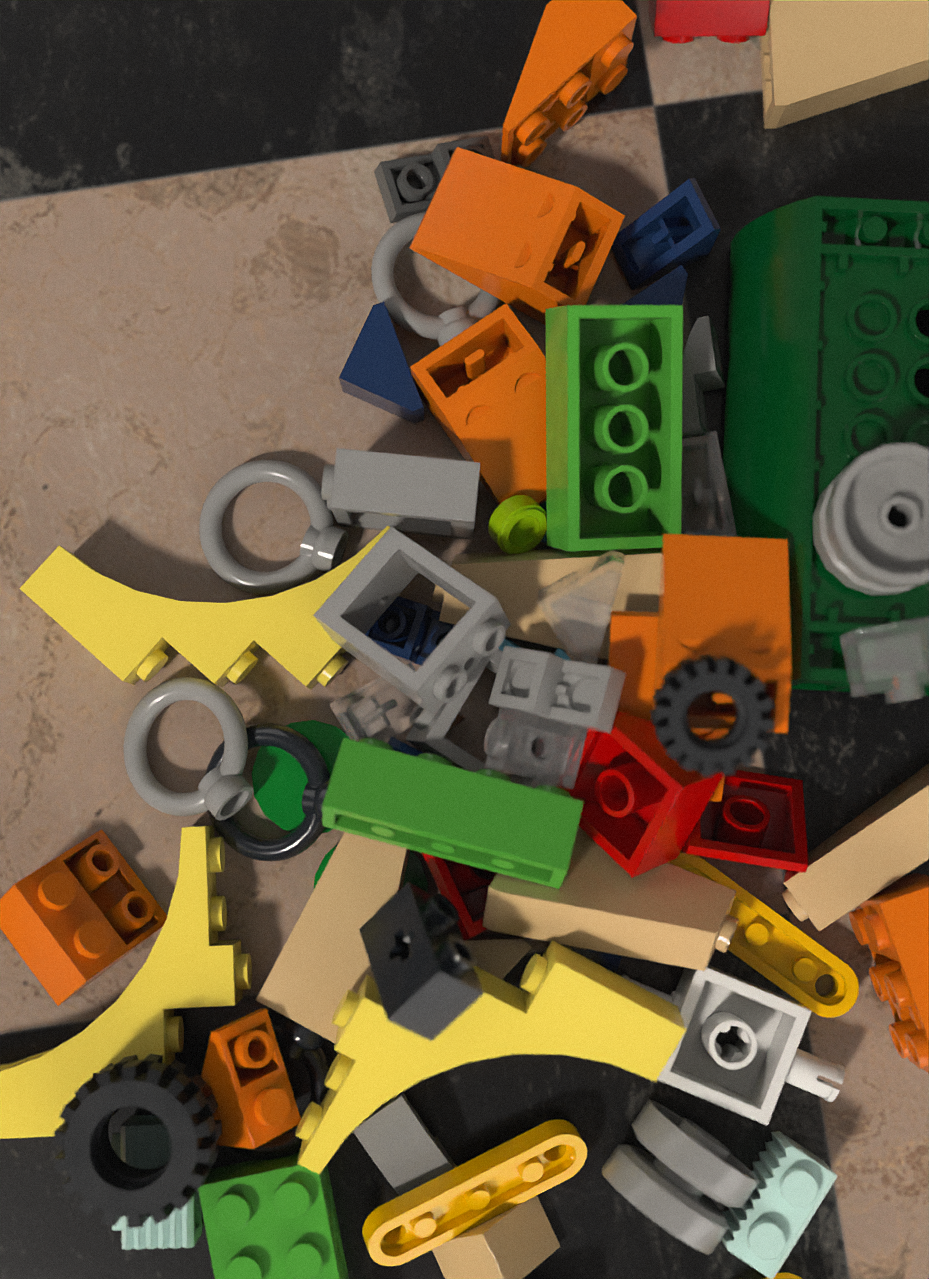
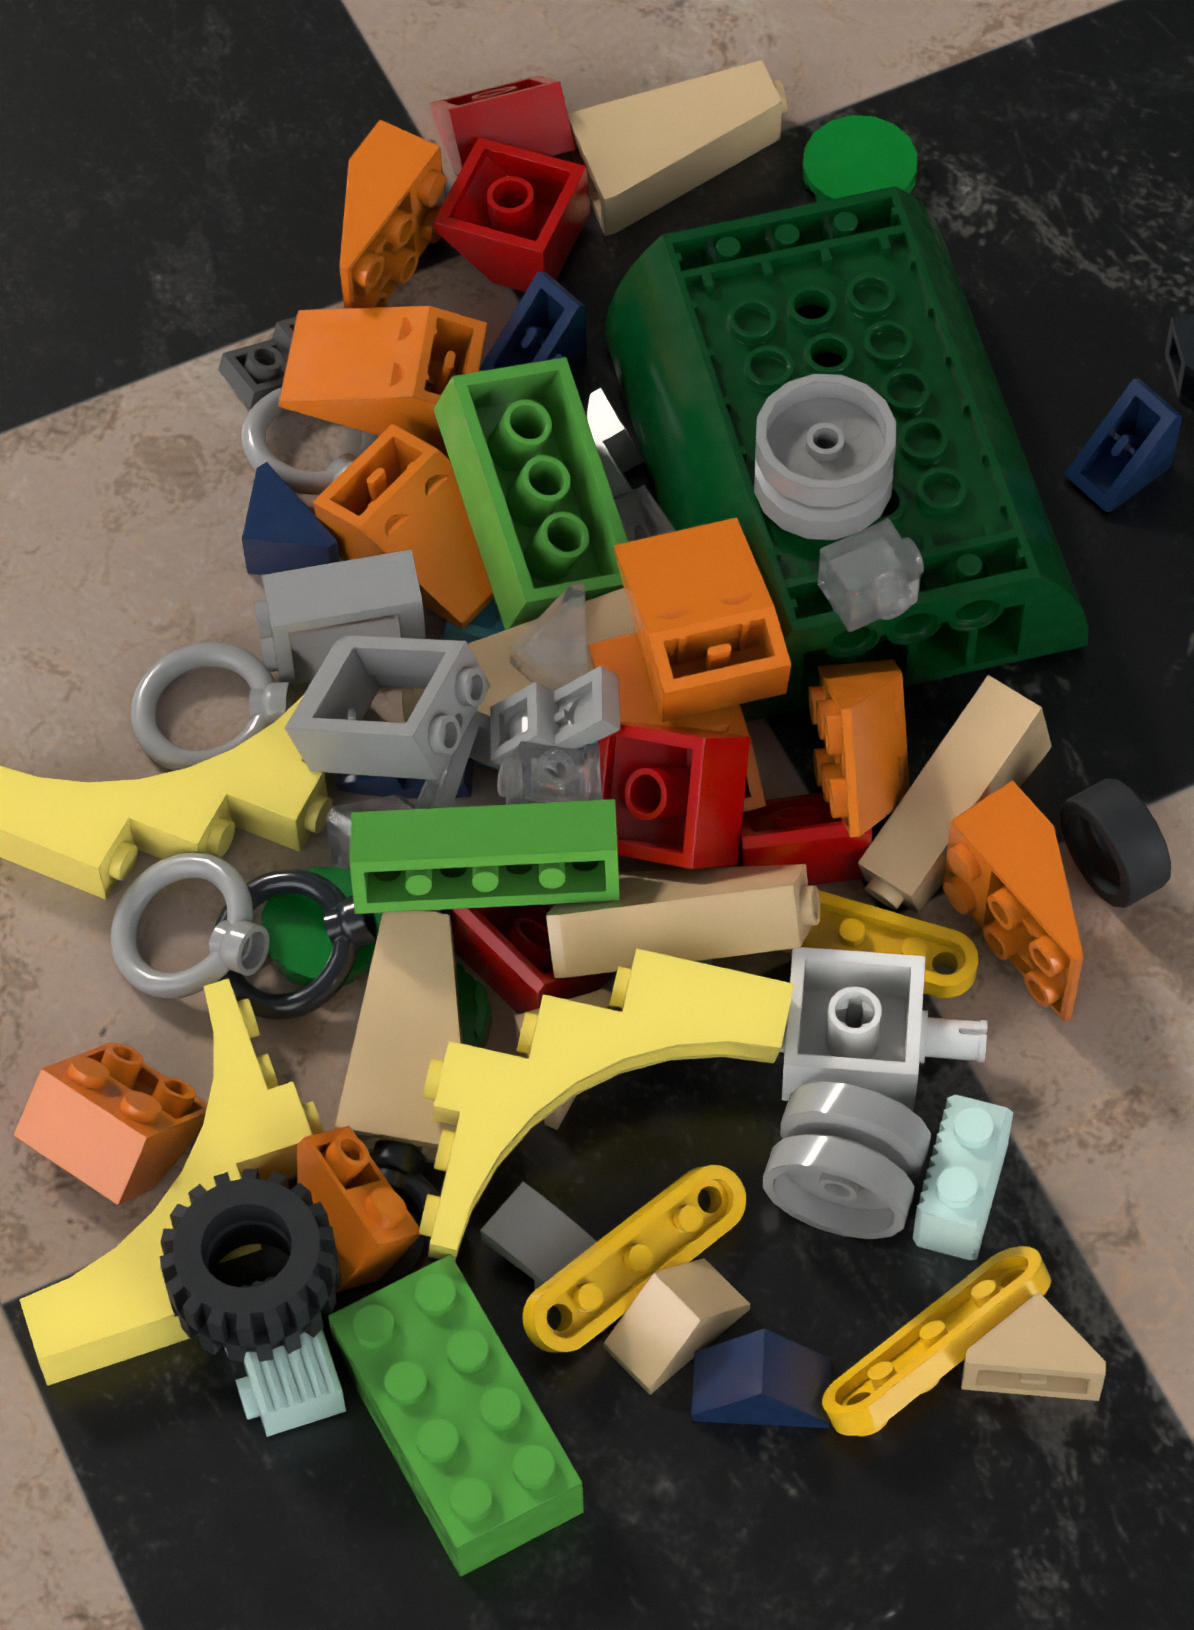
camera: 15 degrees left, 25 degrees down
(421, 961) = (498, 988): black brick -> none
(518, 524) = (469, 616): lime tile -> none
(687, 93) = (514, 212): none -> red slope
(744, 737) = (709, 619): black tyre -> none
(823, 777) = (864, 741): none -> orange slope

